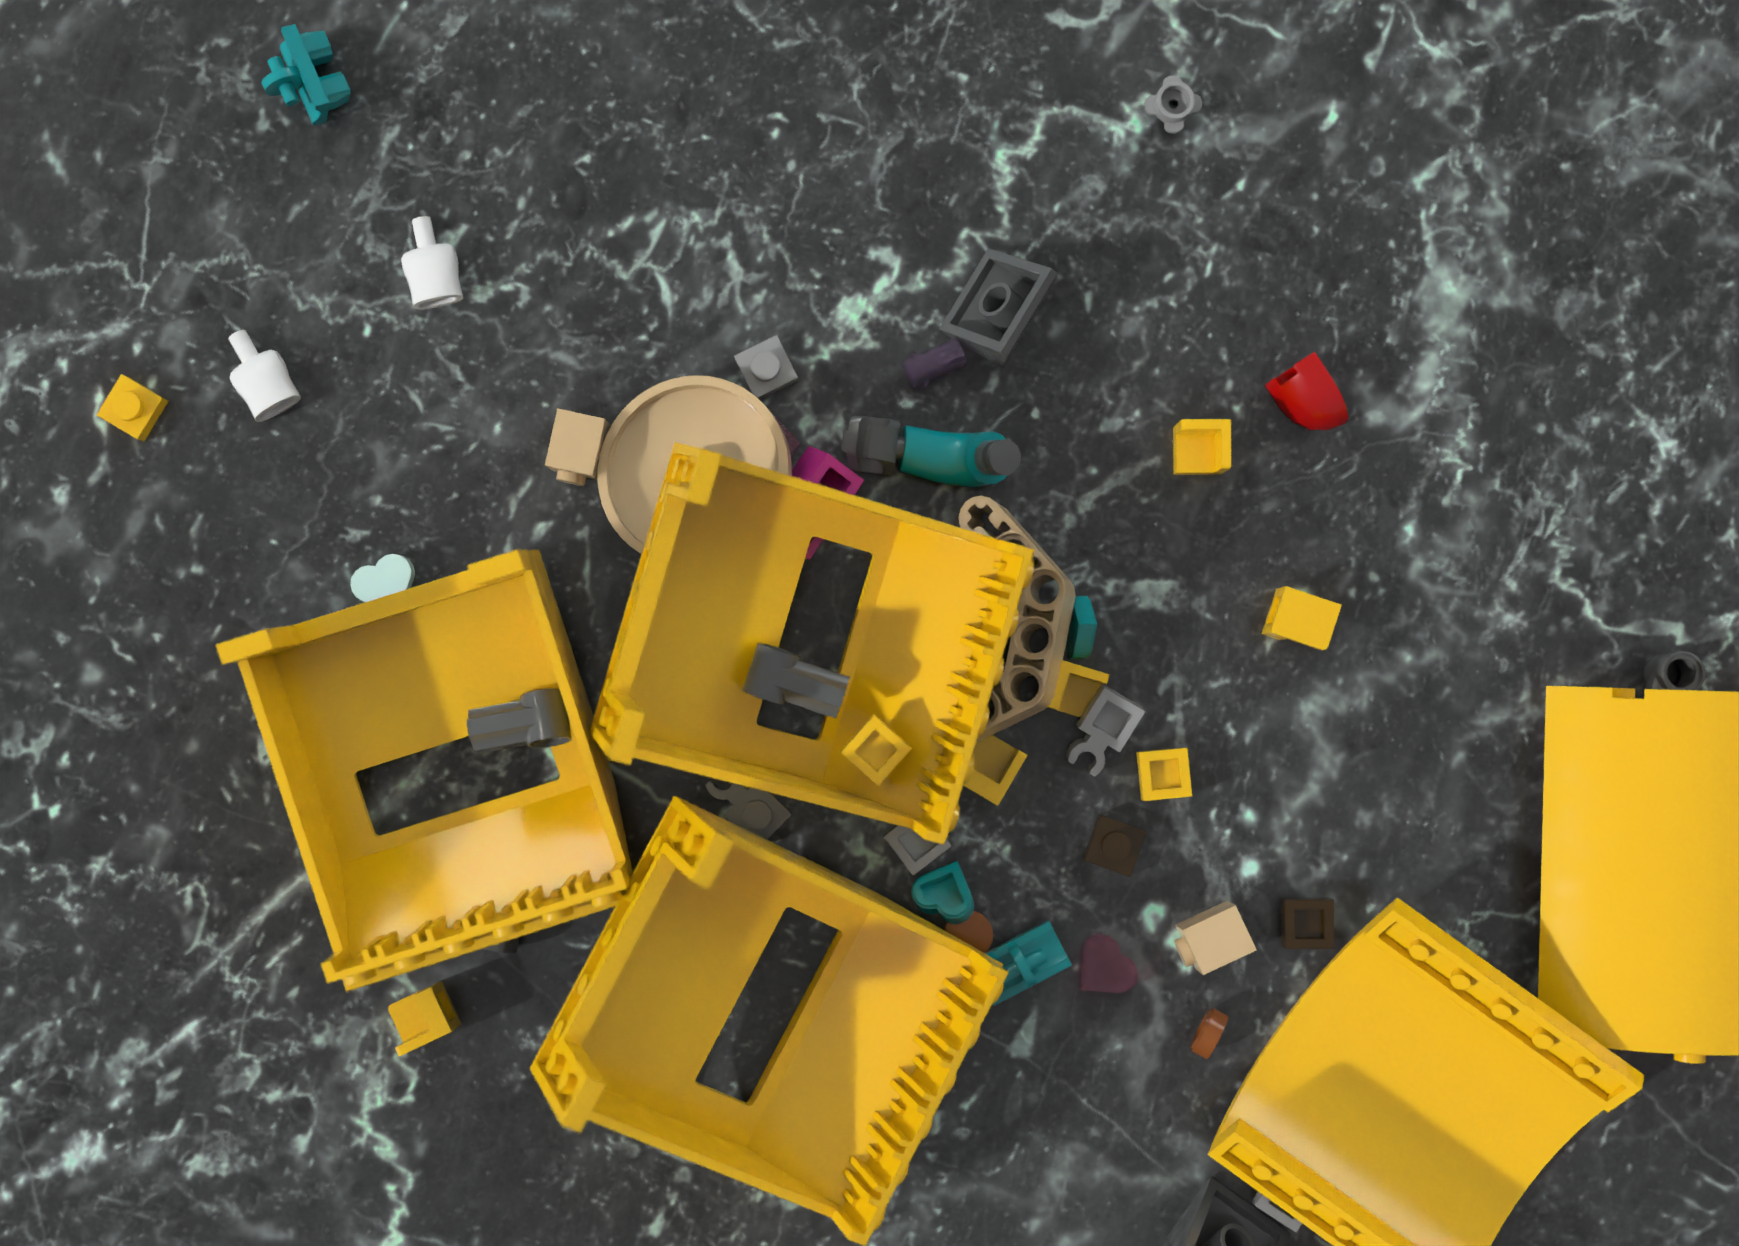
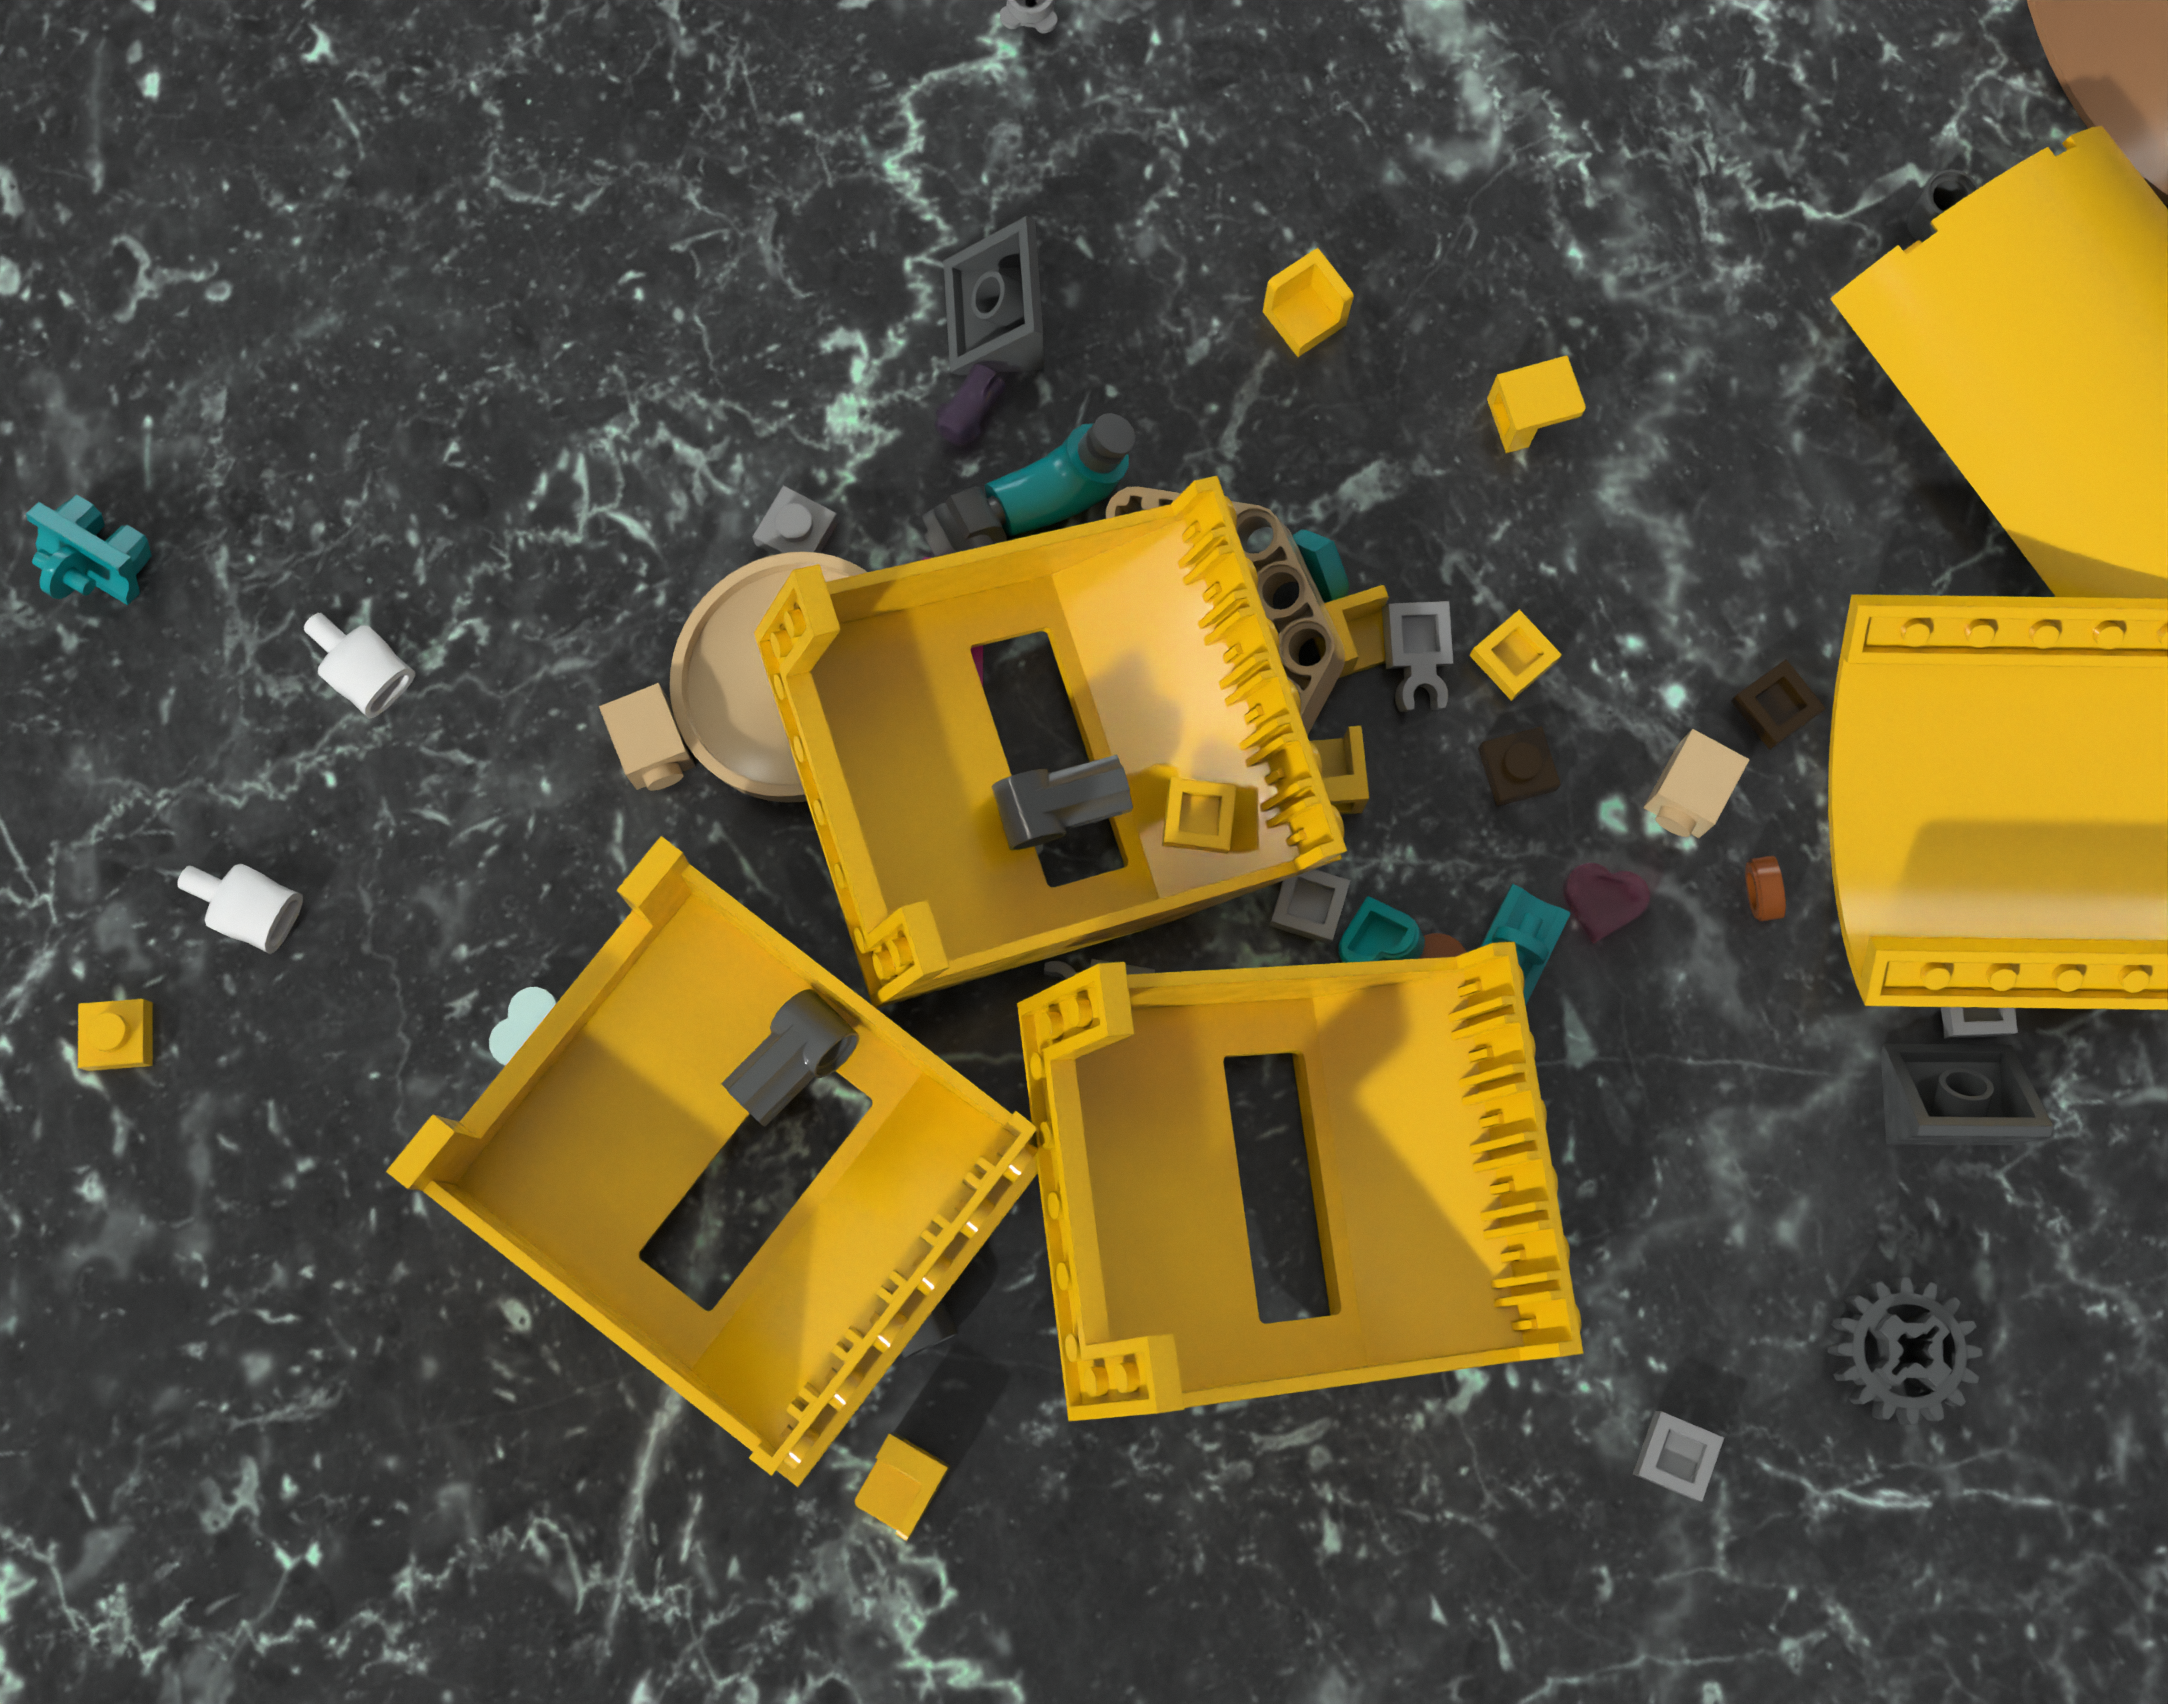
camera: 40 degrees left, 10 degrees down
(1309, 395) = (1378, 184): red brick -> none

